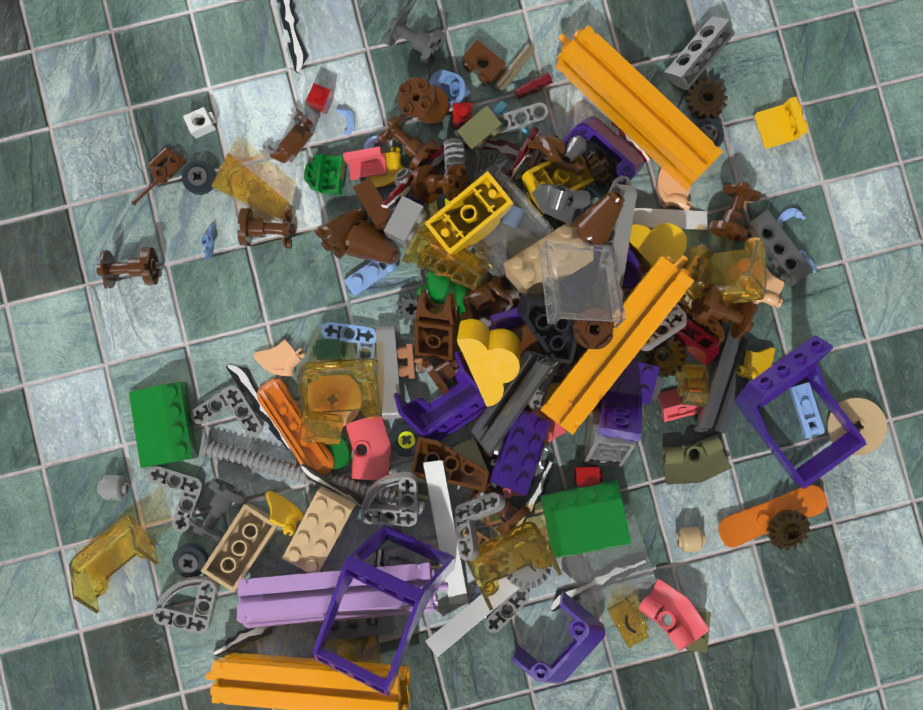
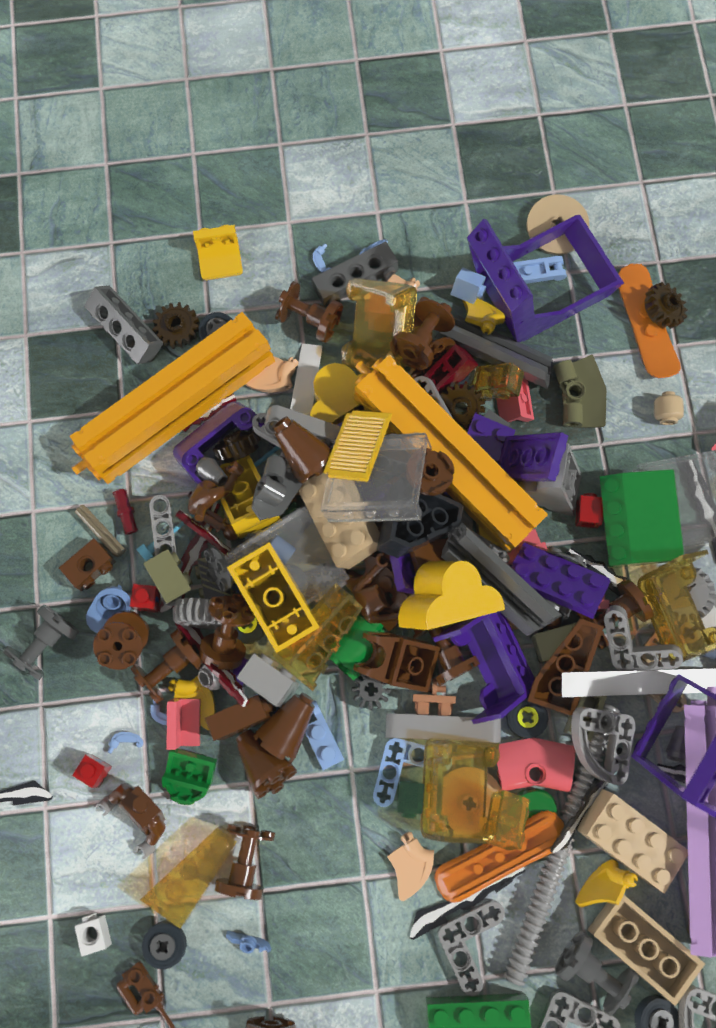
camera: 75 degrees left, 10 degrees down
(608, 264) = (357, 445): none -> yellow window
(780, 347) = (468, 286): none -> light blue brick

